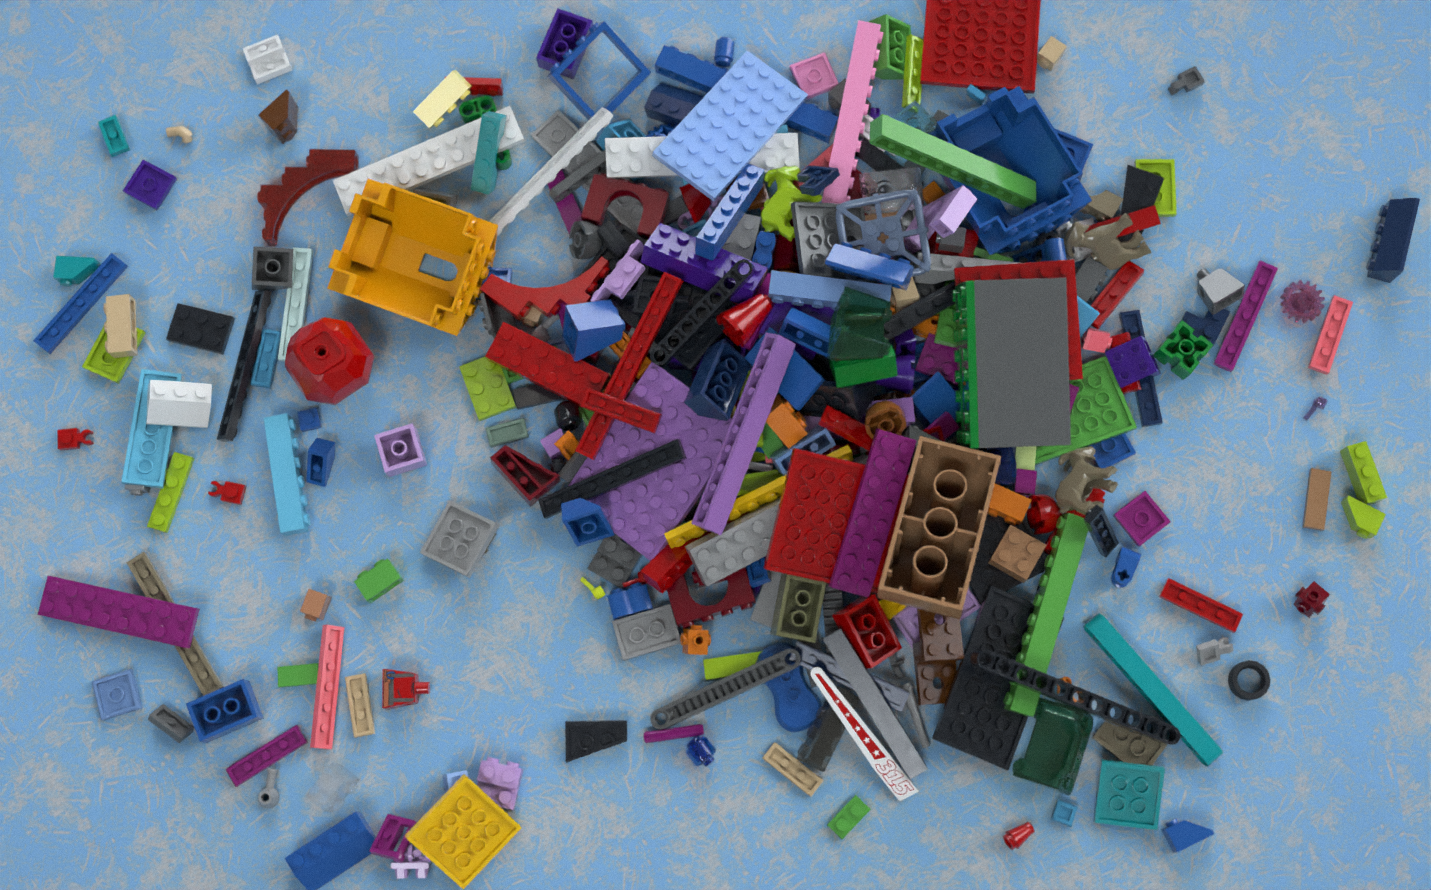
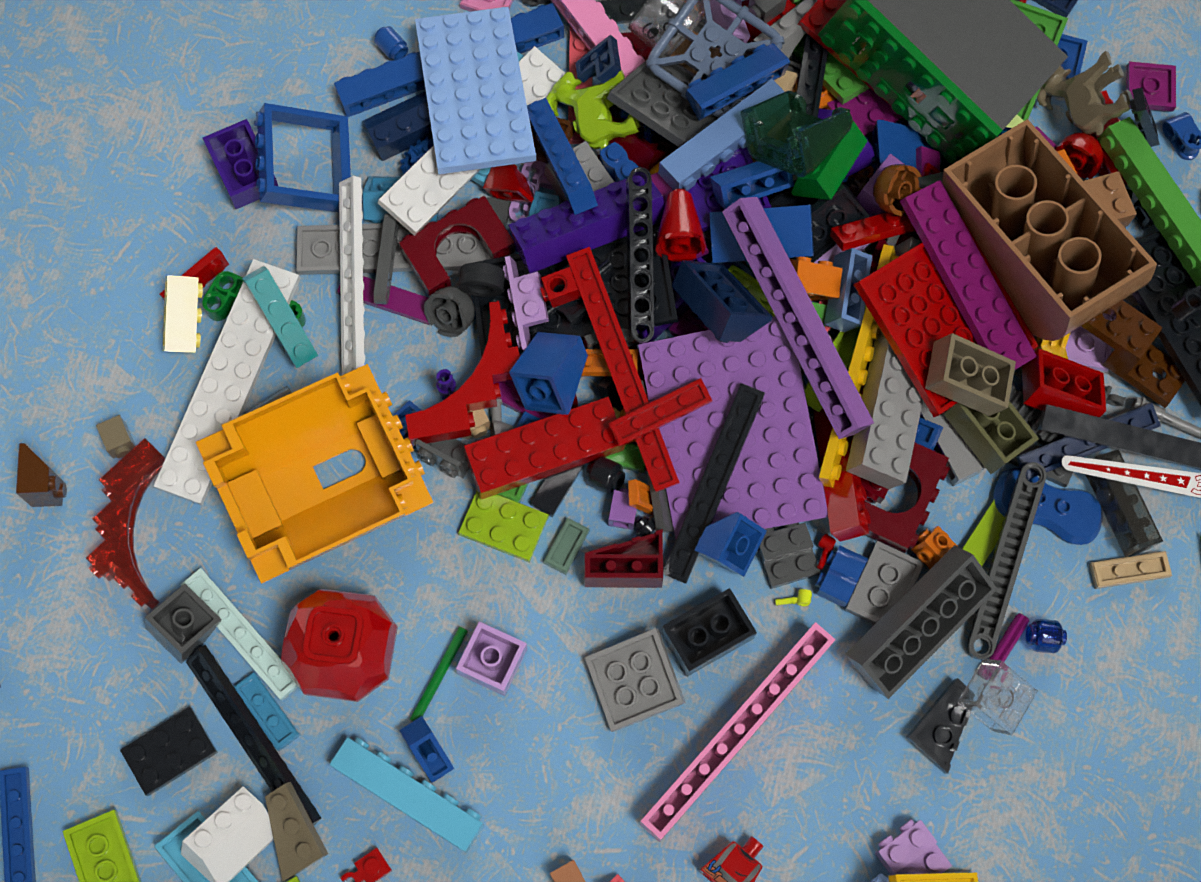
camera: 55 degrees left, 5 degrees down
(120, 326) = (88, 827): tan brick -> none
(212, 432) = (293, 832): none -> dark tan wing
(309, 419) = (370, 723): blue plate -> none
(344, 134) = (116, 437): none -> dark tan brick
(370, 430) = (439, 674): none -> green bar
(378, 580) = (602, 796): bright green brick -> none
(481, 621) = (736, 732): none -> bright pink brick
(524, 555) = (708, 632): none -> black brick
(536, 278) = (442, 387): none -> dark purple pin
(634, 752) = (997, 696): none -> clear brick
(638, 669) = (921, 621): none -> dark grey brick
(639, 279) = (567, 295): none -> red brick
(805, 565) = (970, 374): none -> dark tan brick

